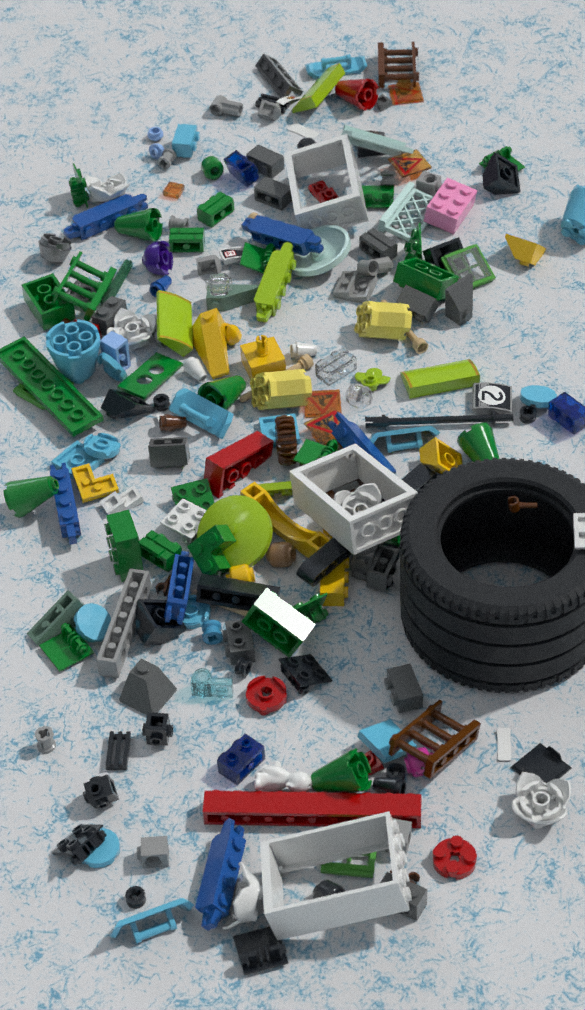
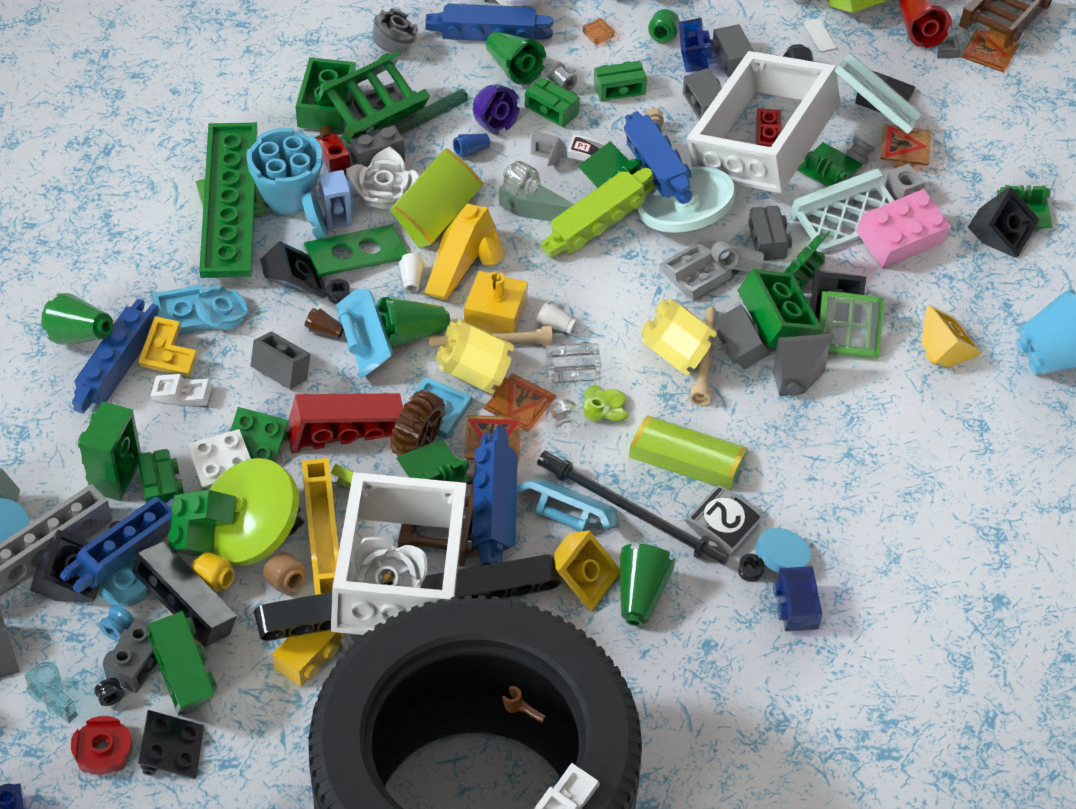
camera: 30 degrees right, 5 degrees up
(313, 608) = (251, 663): green hinge -> none

